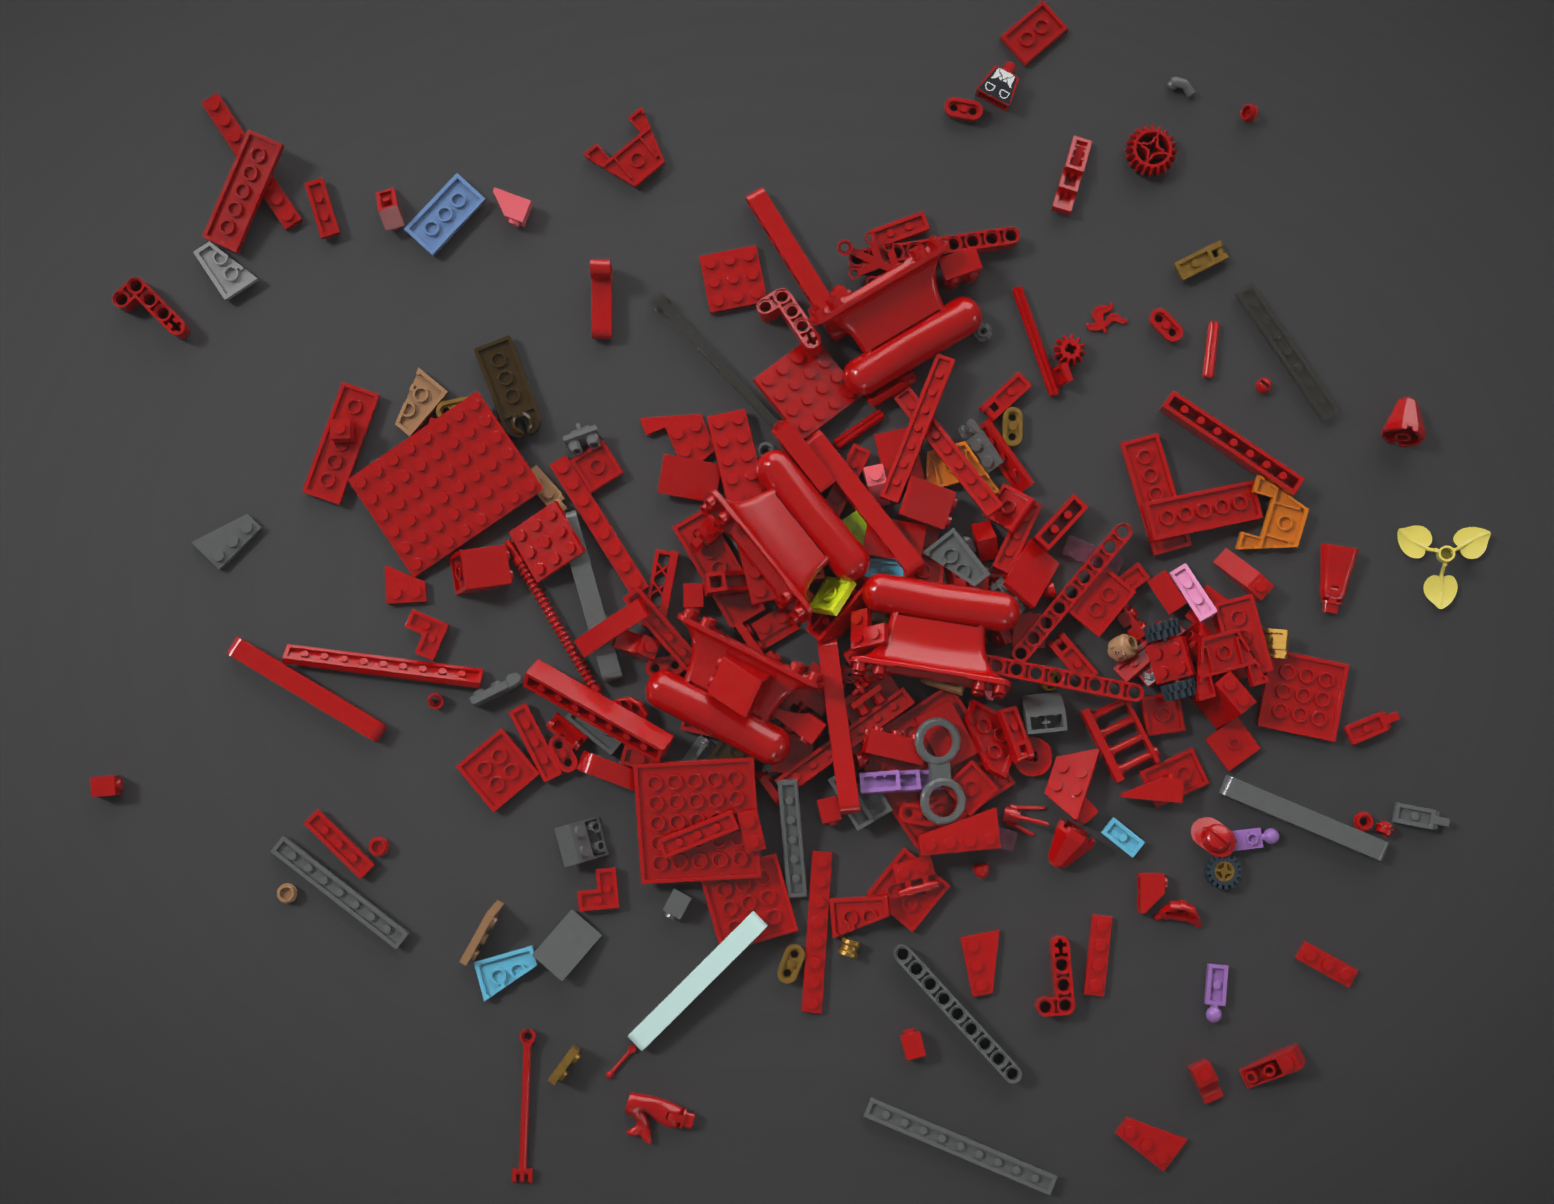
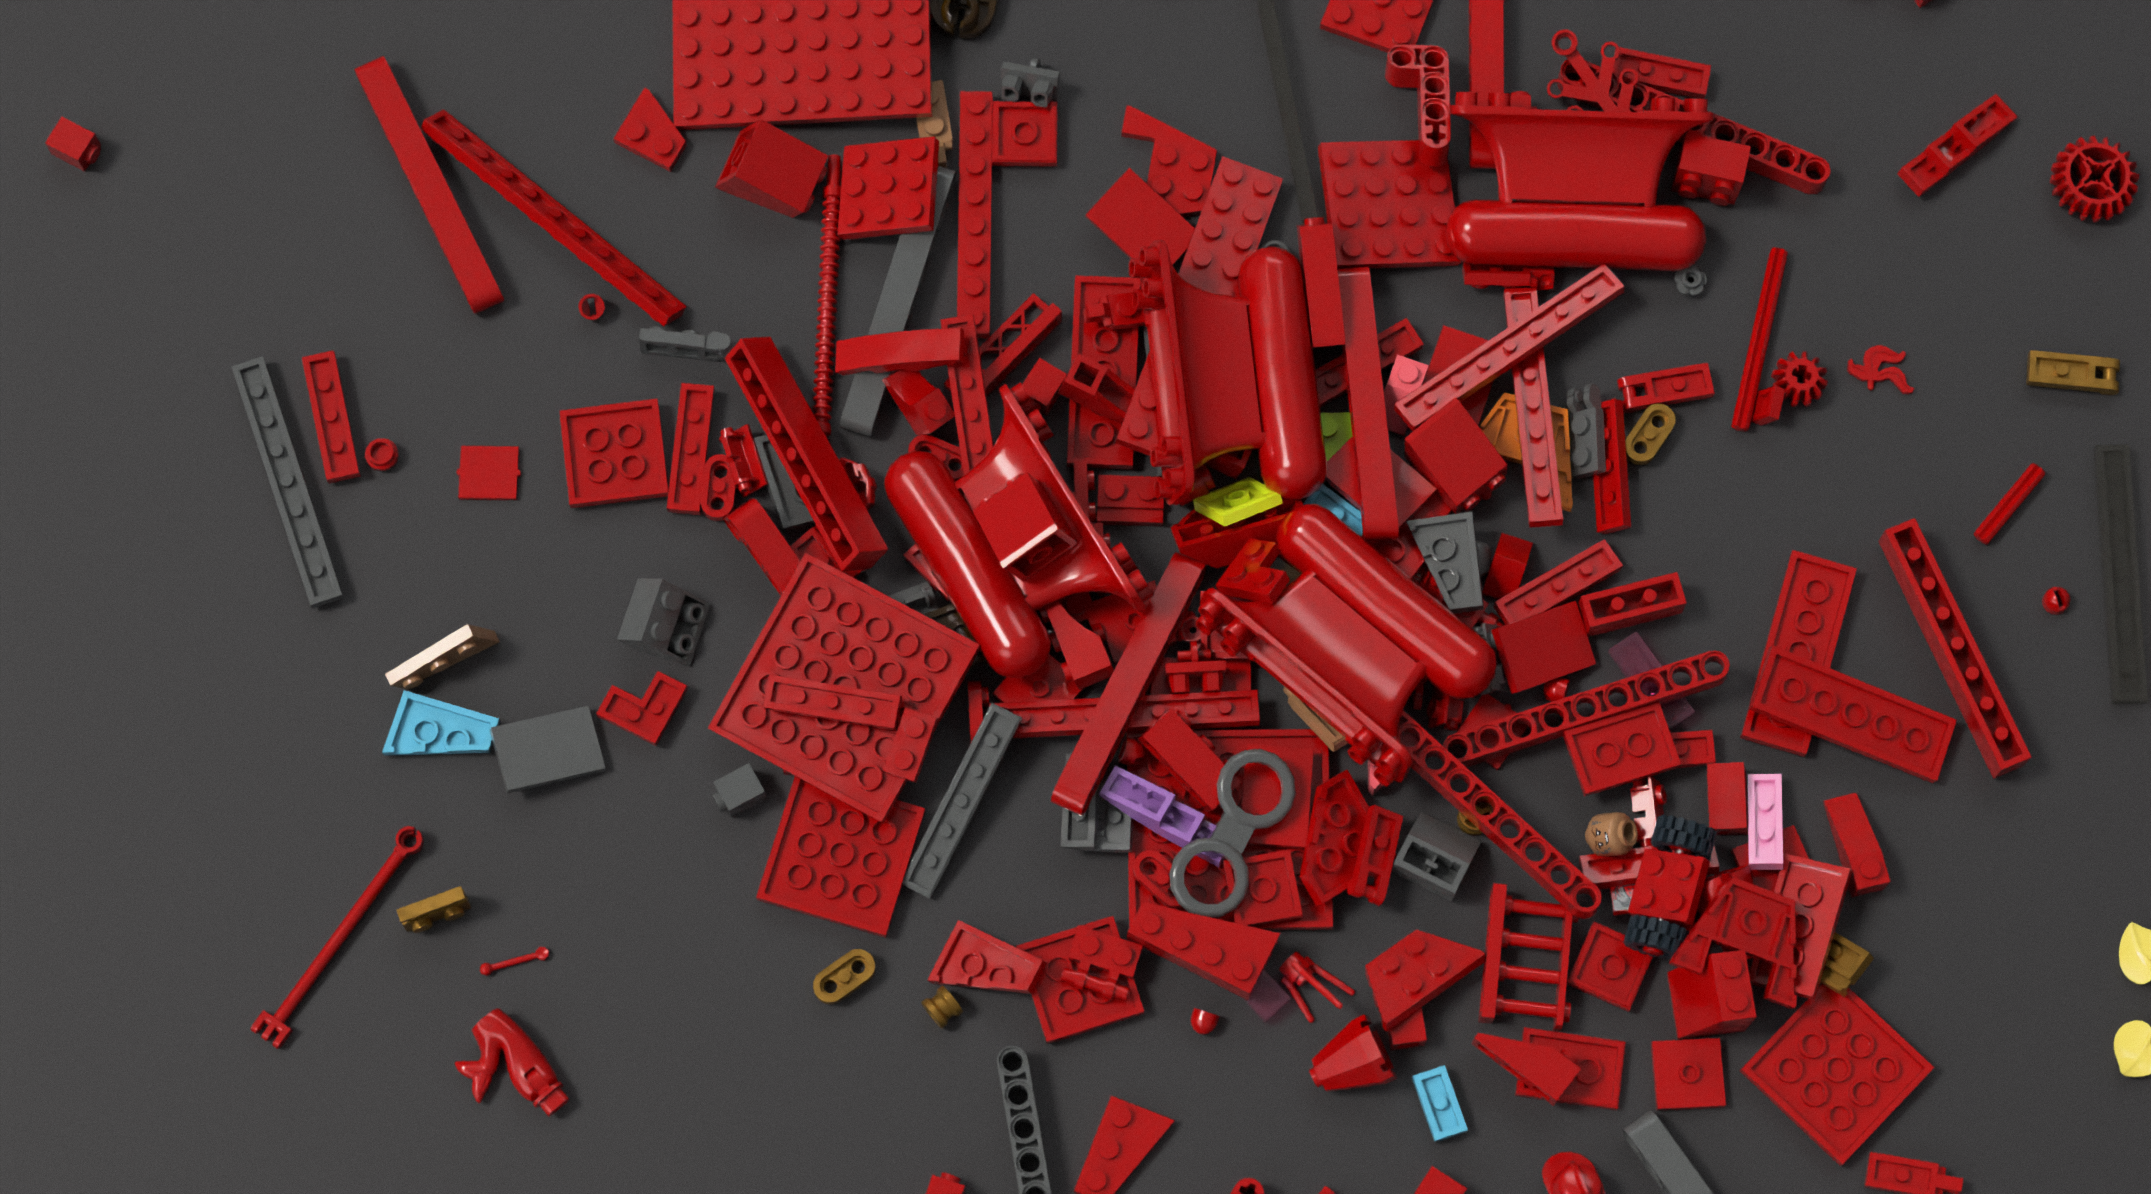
camera: 40 degrees right, 10 degrees down
(287, 893) = (215, 438): medium nougat plate -> none
(432, 633) = (650, 212): red plate -> none
(439, 820) = (488, 473): none -> red piece
(697, 981) = (696, 911): light aqua beam -> none
(816, 932) = (910, 957): red plate -> none
(829, 810) = (1036, 798): red brick -> none
(858, 429) = (1426, 305): red axle -> none
(1015, 508) = (1573, 543): red plate -> none
(1043, 756) = (1385, 927): red plate -> none
(1071, 656) = (1529, 799): red plate -> none
(1167, 324) = (1963, 431): red plate -> none
(1282, 521) = (1962, 805): orange wing -> none
(1335, 572) = (1998, 922): red piece -> none

